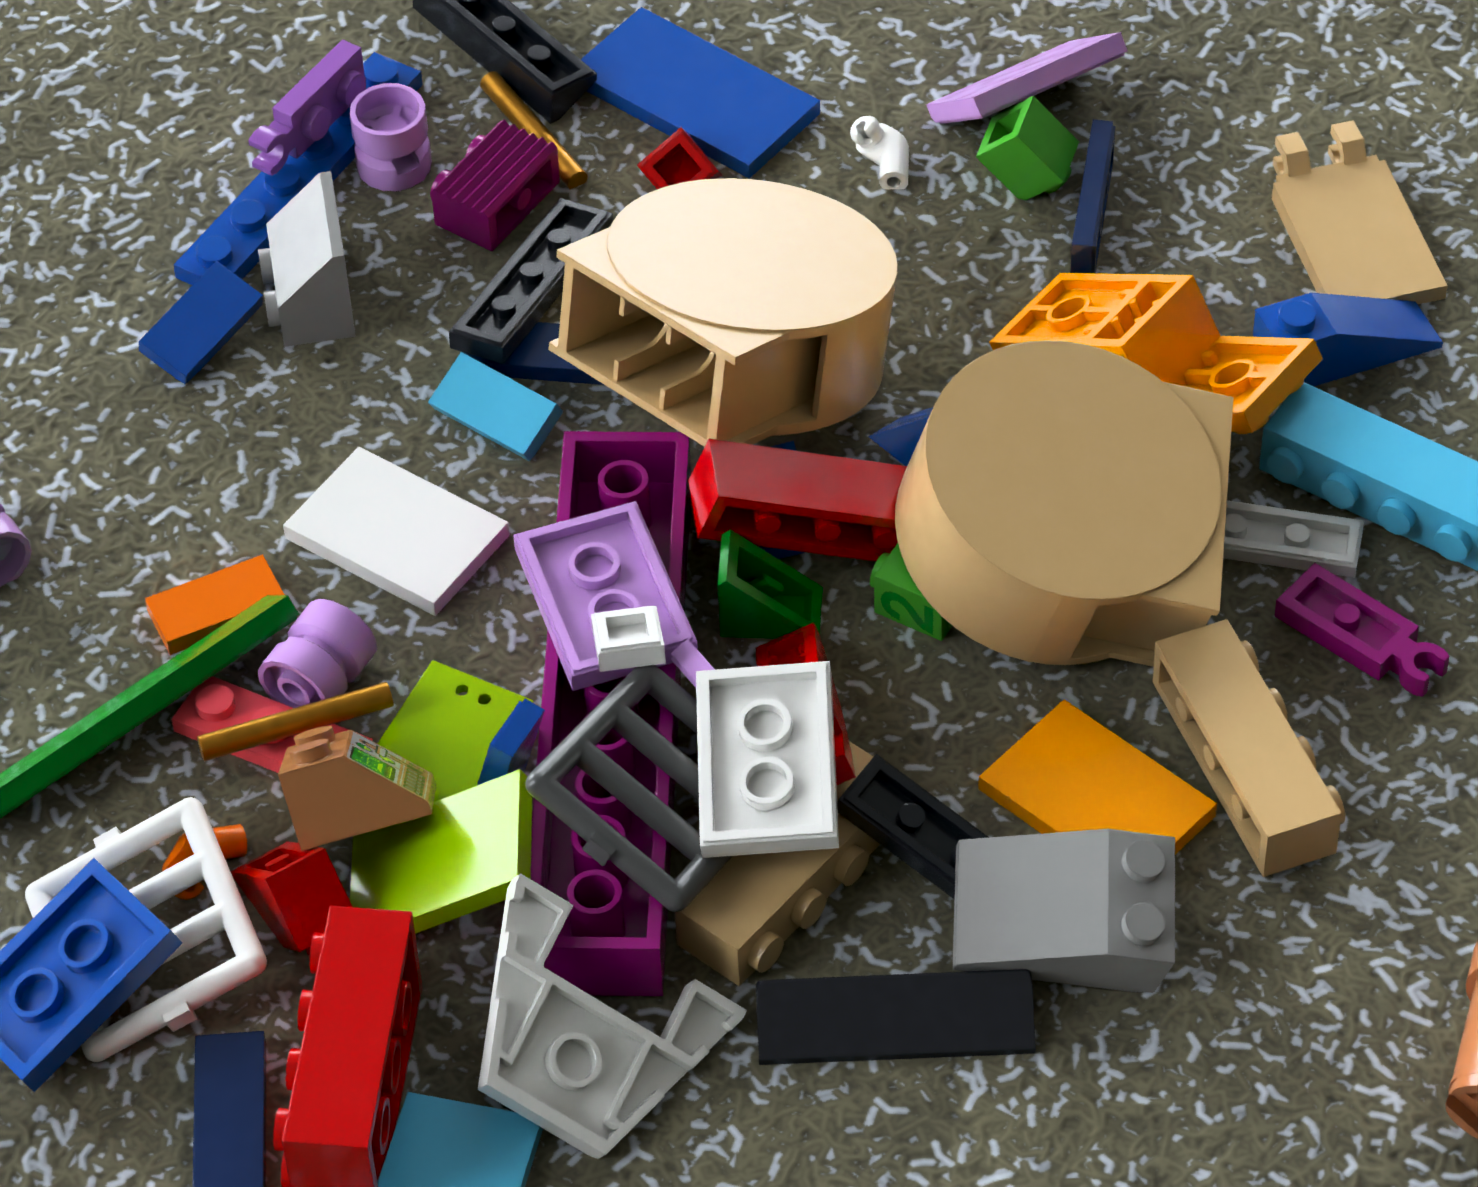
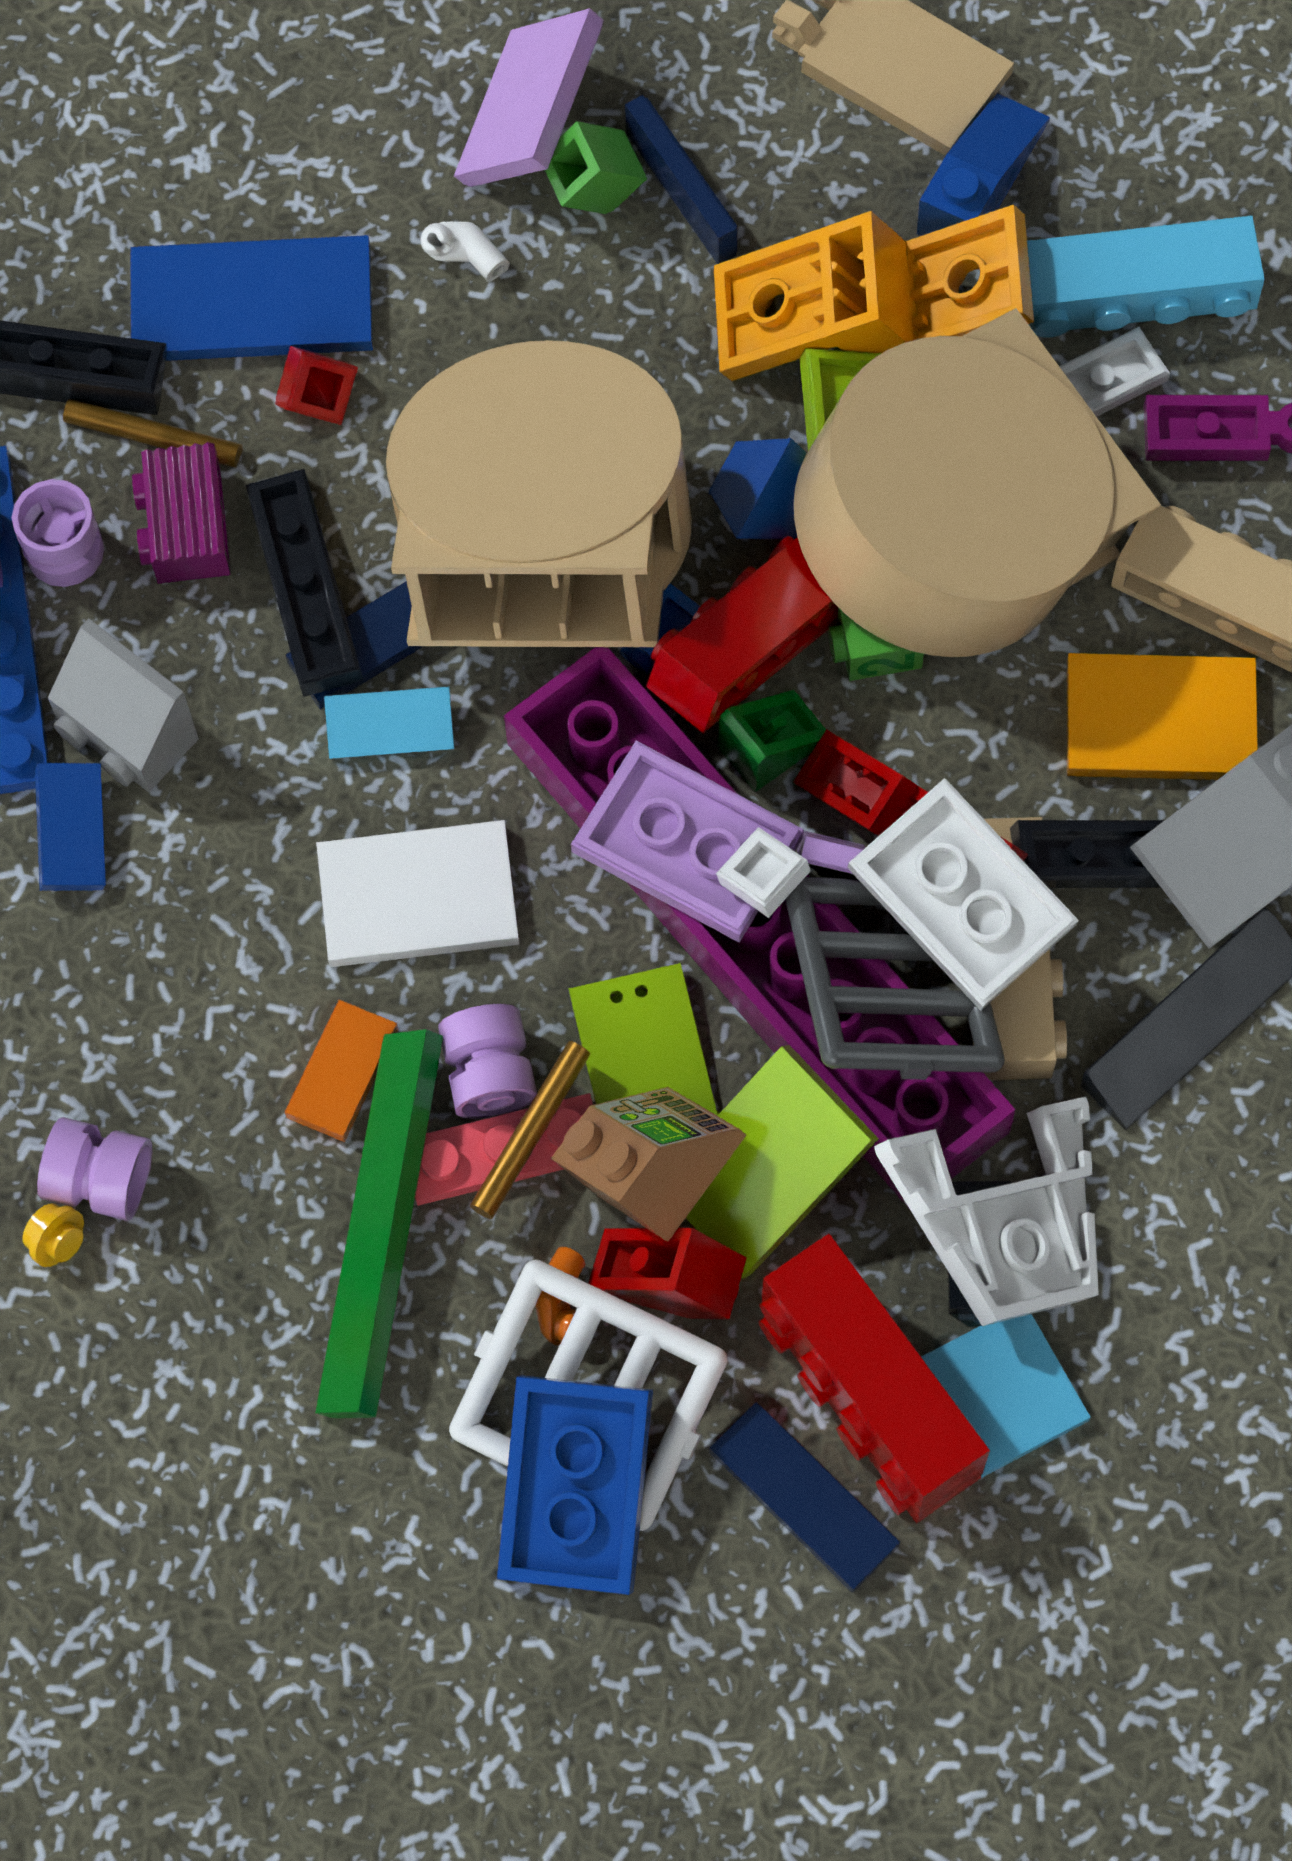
camera: 40 degrees left, 20 degrees up
(513, 742) = (734, 1037): blue tile -> none

